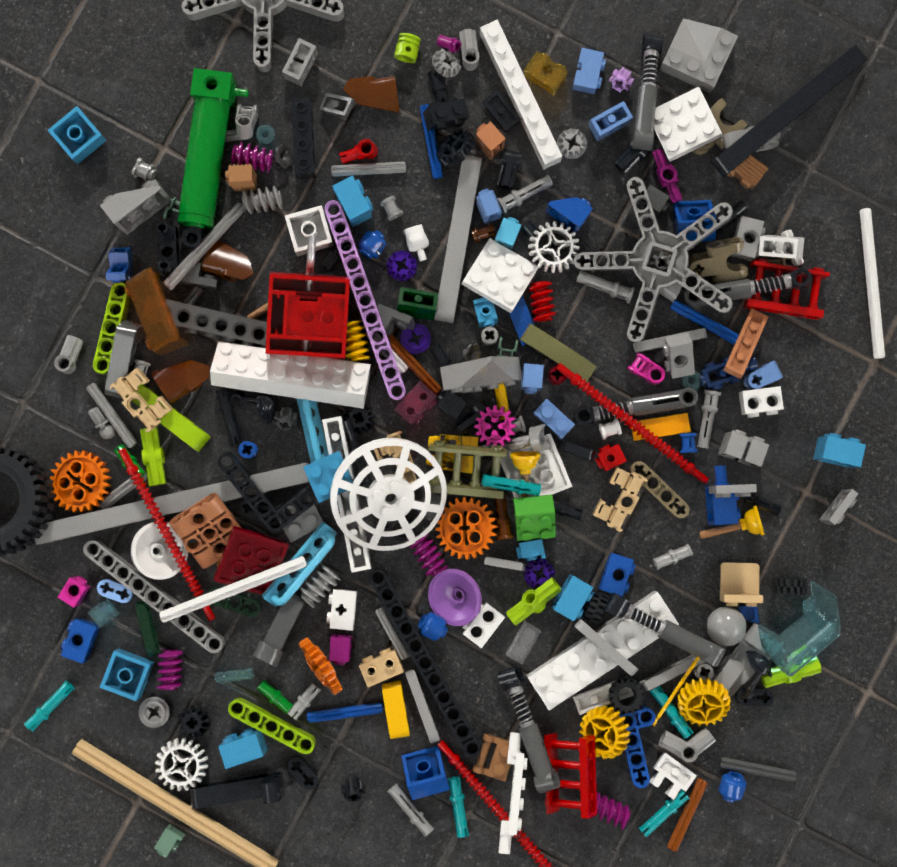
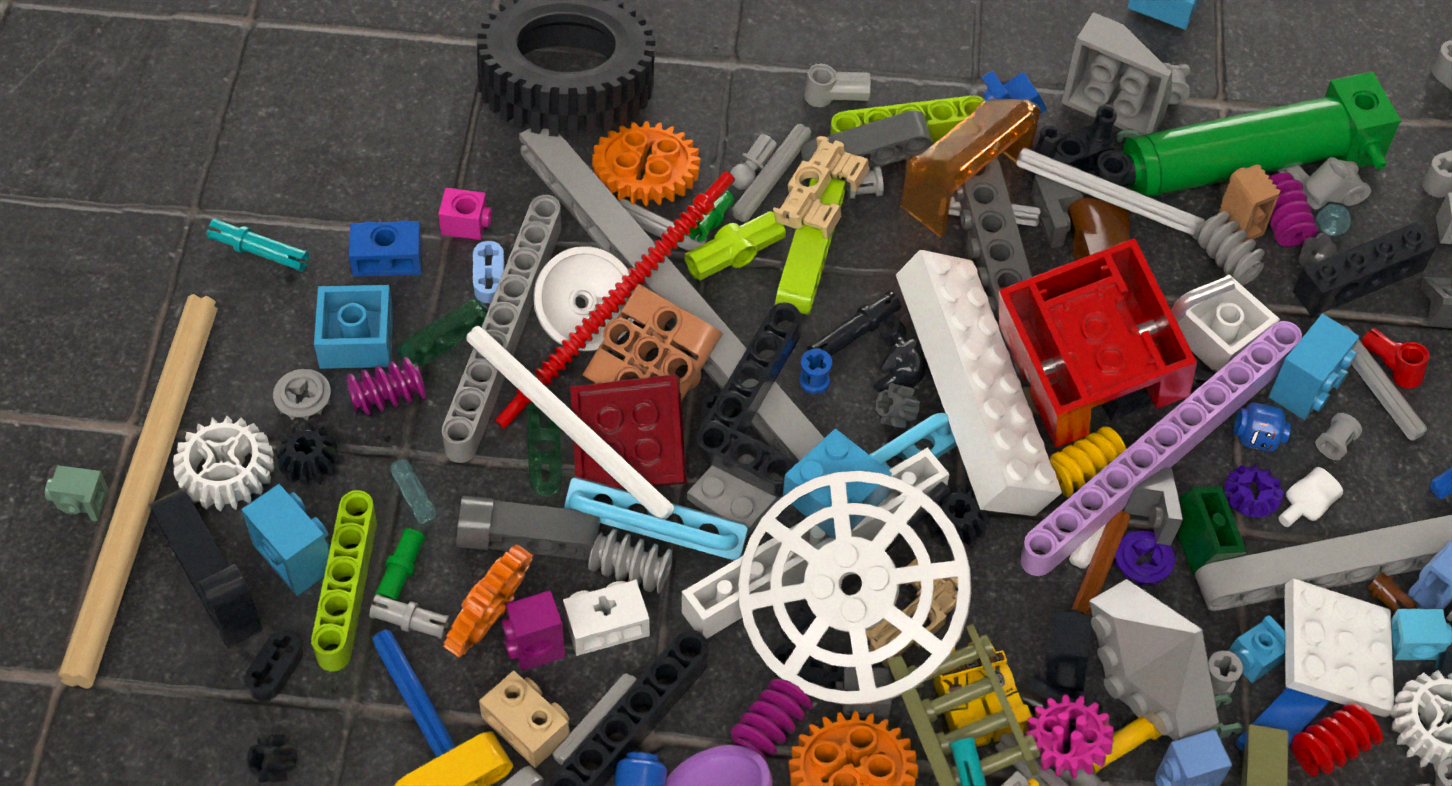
camera: 65 degrees right, 30 degrees down
(103, 613) = (444, 263): clear light blue brick -> none
(181, 379) = (877, 237): reddish brown panel -> none
(413, 401) = (1032, 593): clear pink brick -> none

